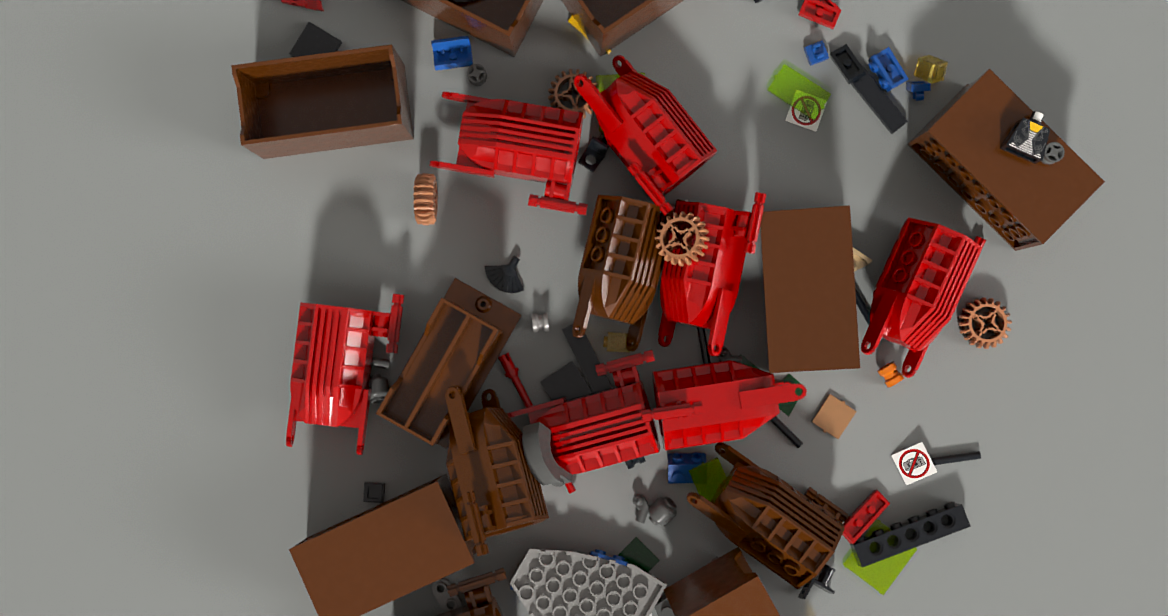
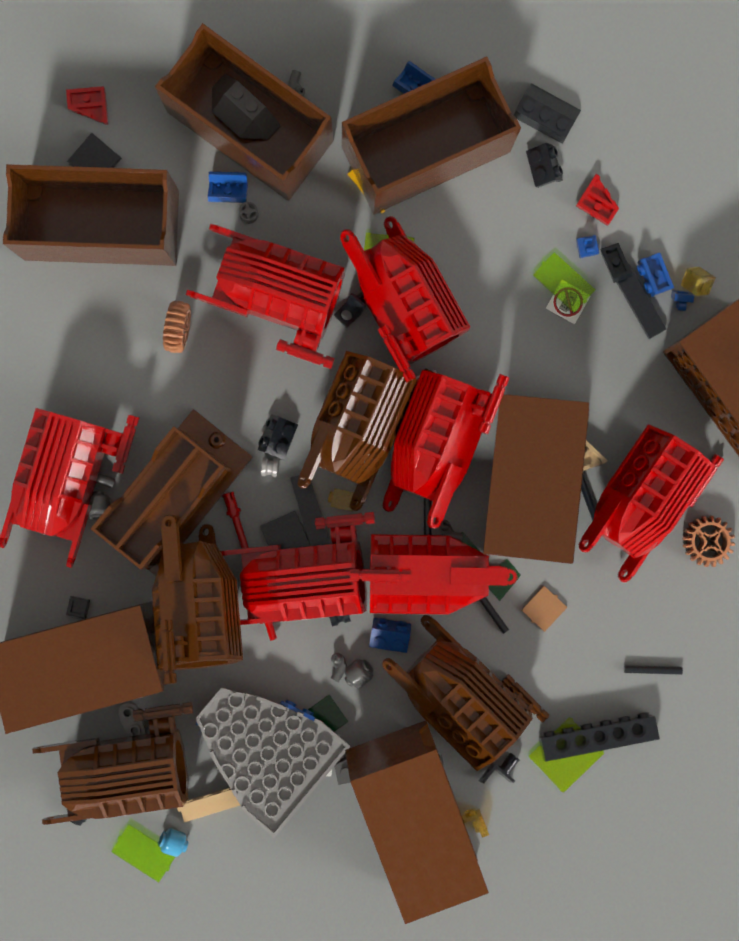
camera: 10 degrees right, 0 degrees up
(505, 277) = (243, 416): black hand -> none
(539, 457) = (244, 599): dark grey arch -> none
(542, 291) = (277, 436): none -> black bracket
(565, 94) = (332, 246): nougat gear -> none
(672, 226) = (427, 421): nougat gear -> none
(708, 477) = (408, 647): clear neon green piece -> none
(864, 516) = (557, 712): red tile -> none
(890, 374) = (606, 576): orange wheel -> none
(914, 463) = (615, 668): sticker -> none

